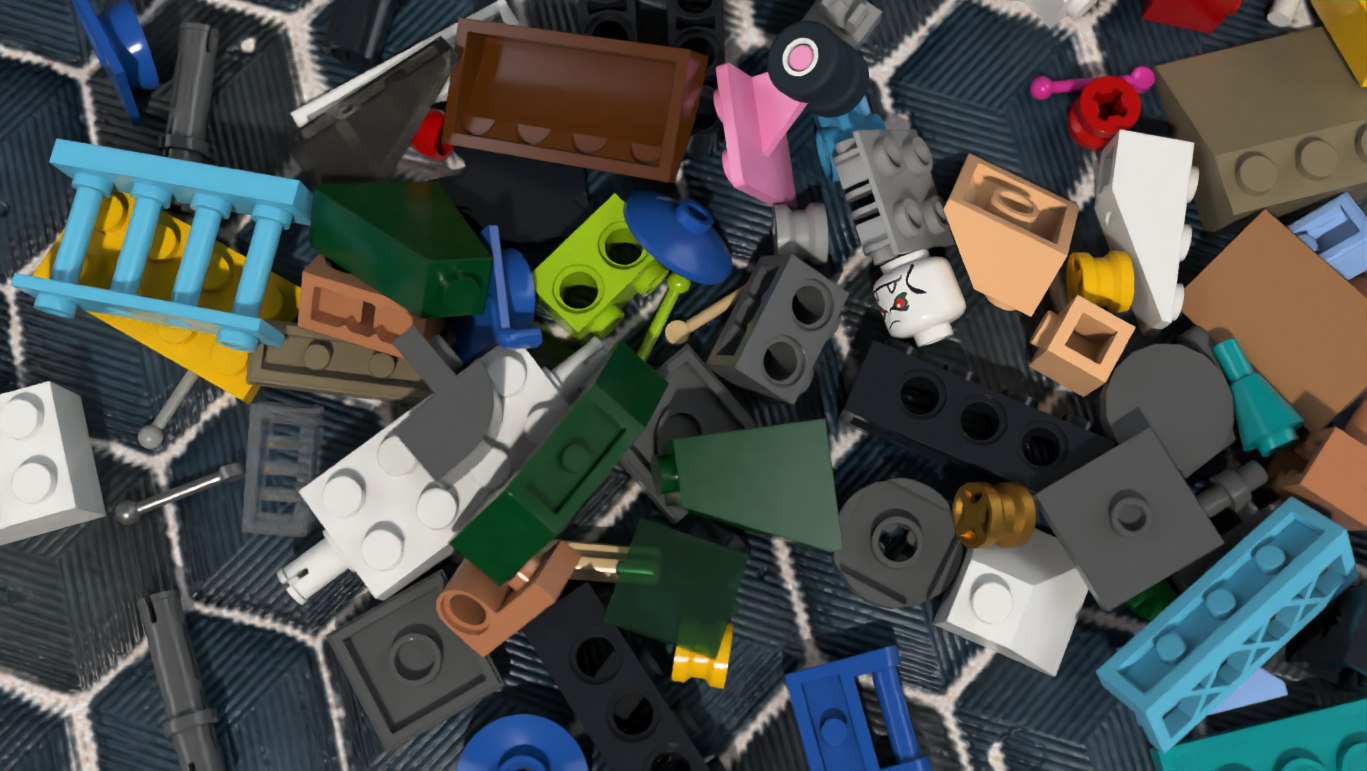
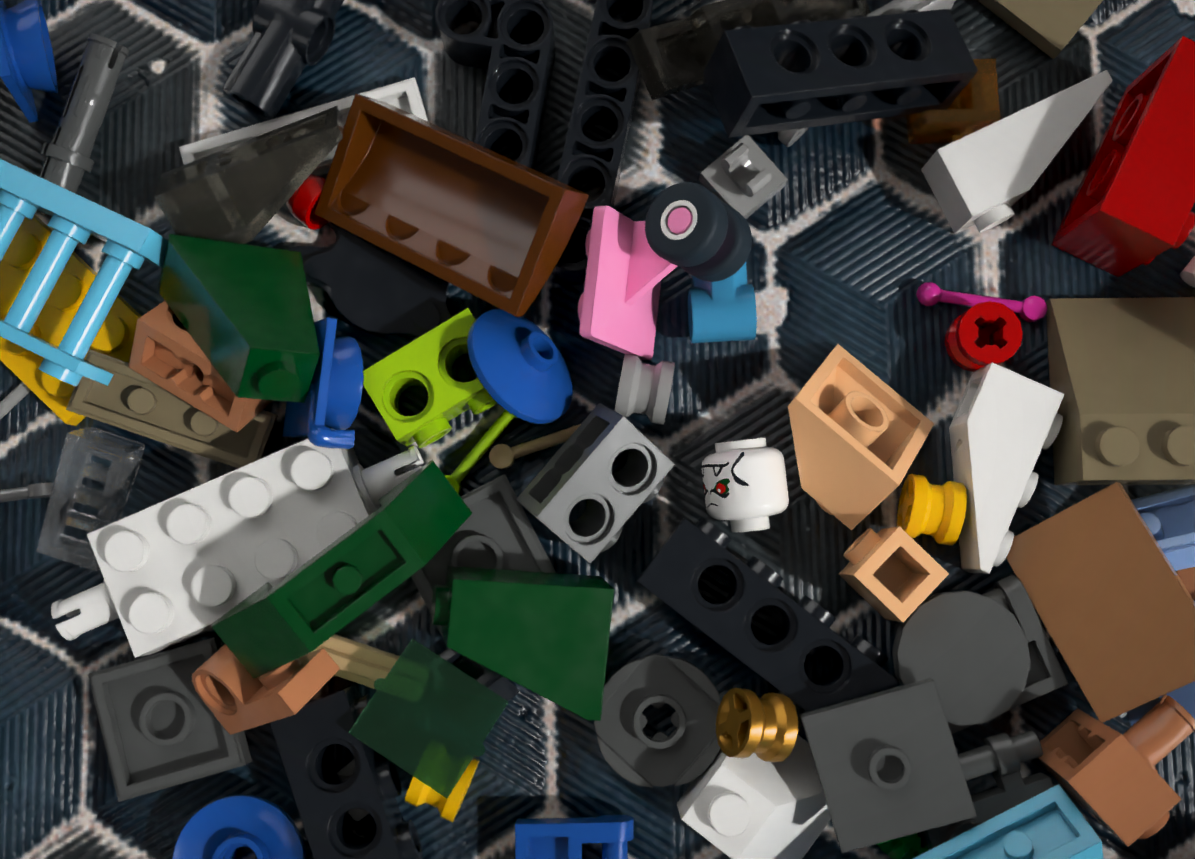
camera: 20 degrees right, 5 degrees up
(461, 418) = (253, 503): dark grey brick -> none
(904, 192) = (754, 372): light grey hinge -> none
(1260, 411) = (1053, 683): teal cone -> none

